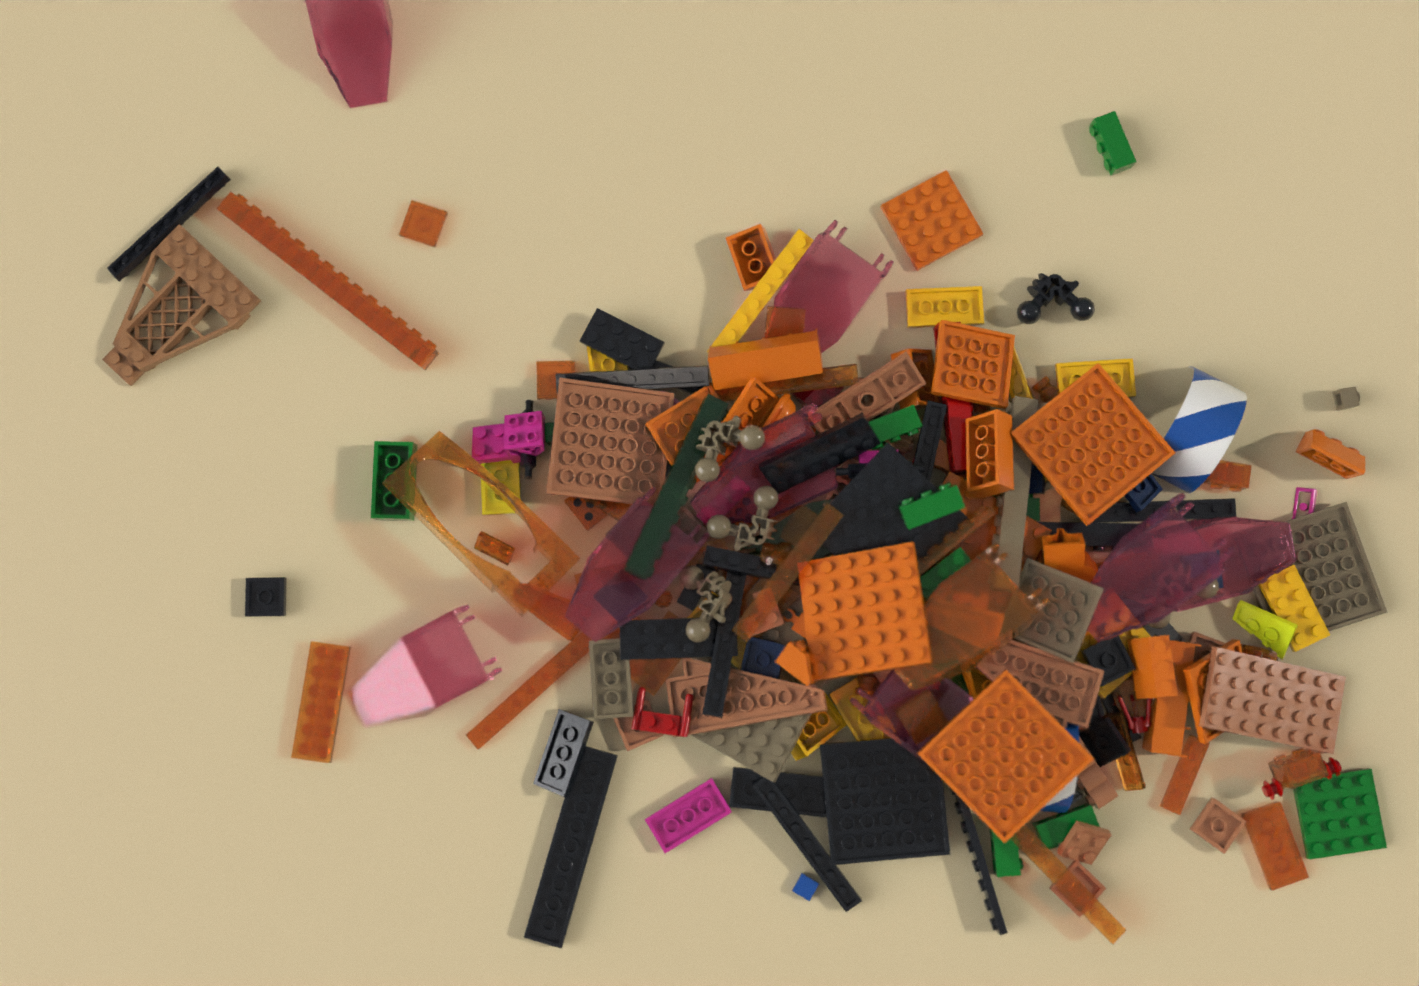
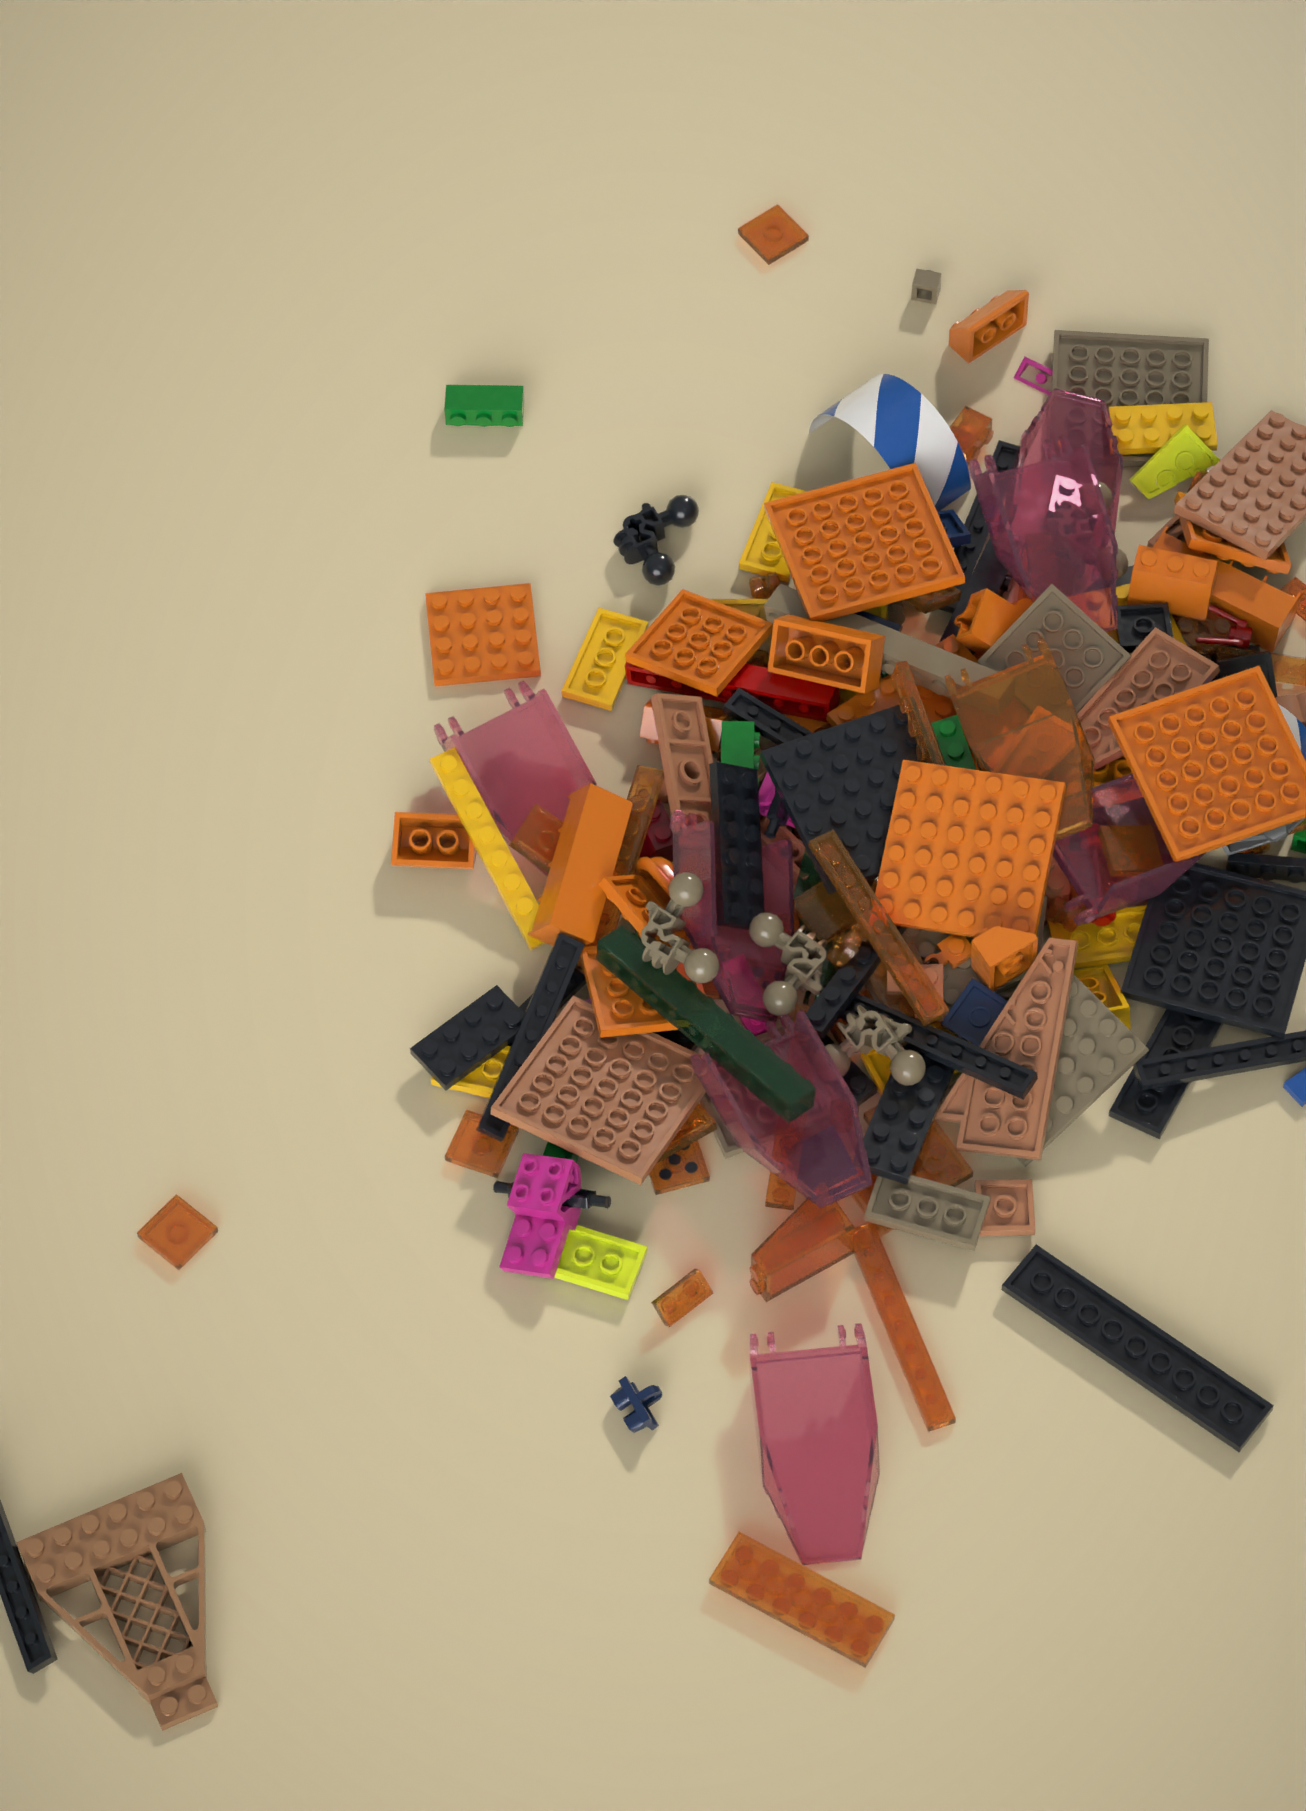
camera: 70 degrees left, 25 degrees down
(265, 597) = (617, 1621): black plate -> none
(328, 281) = (196, 1379): clear orange brick -> none
(387, 459) = (530, 1387): green brick -> none
(407, 555) = (641, 1401): none -> dark blue hips
(556, 551) = (697, 1298): clear orange windscreen -> none
(563, 753) = (1004, 1307): plate -> none
(661, 722) = (1012, 1166): red plate -> none
(688, 815) = (1152, 1189): dark pink plate -> none
(931, 505) = (865, 730): green brick -> none
(1346, 275) = (773, 234): none -> clear orange tile

